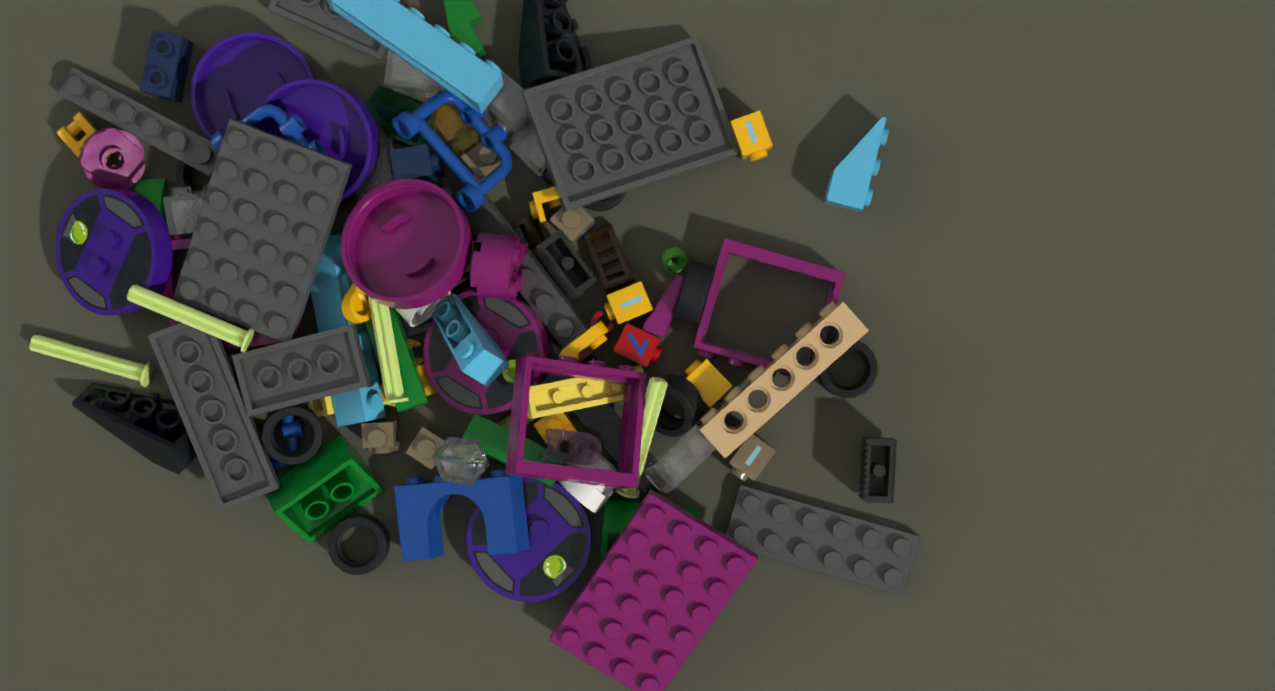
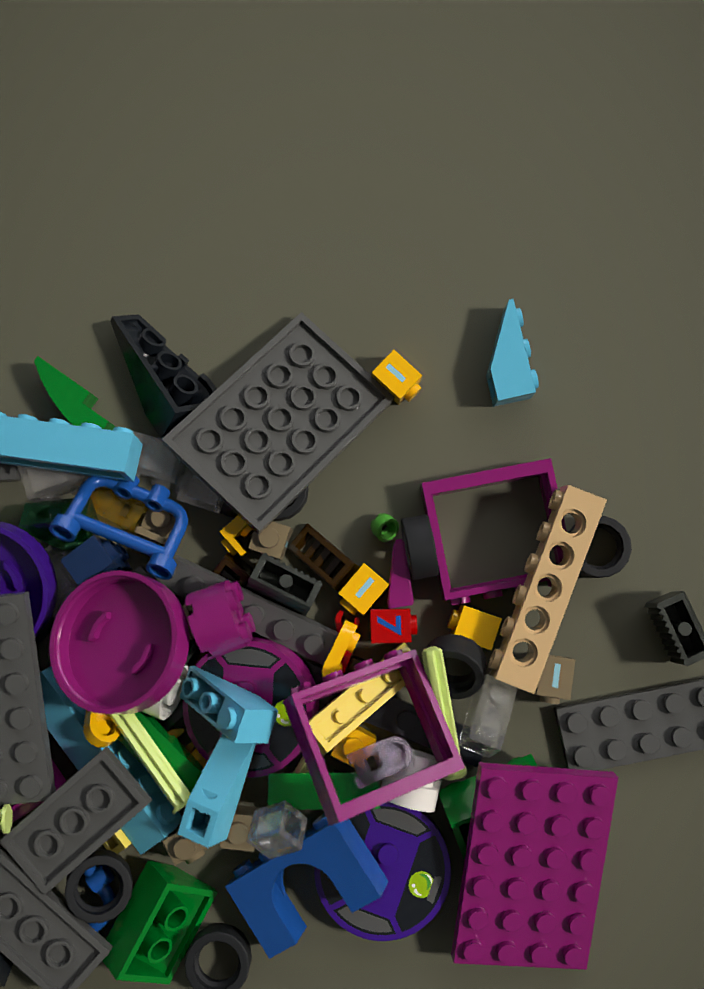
camera: 20 degrees left, 5 degrees down
(427, 405) = (217, 793): none -> medium azure slope

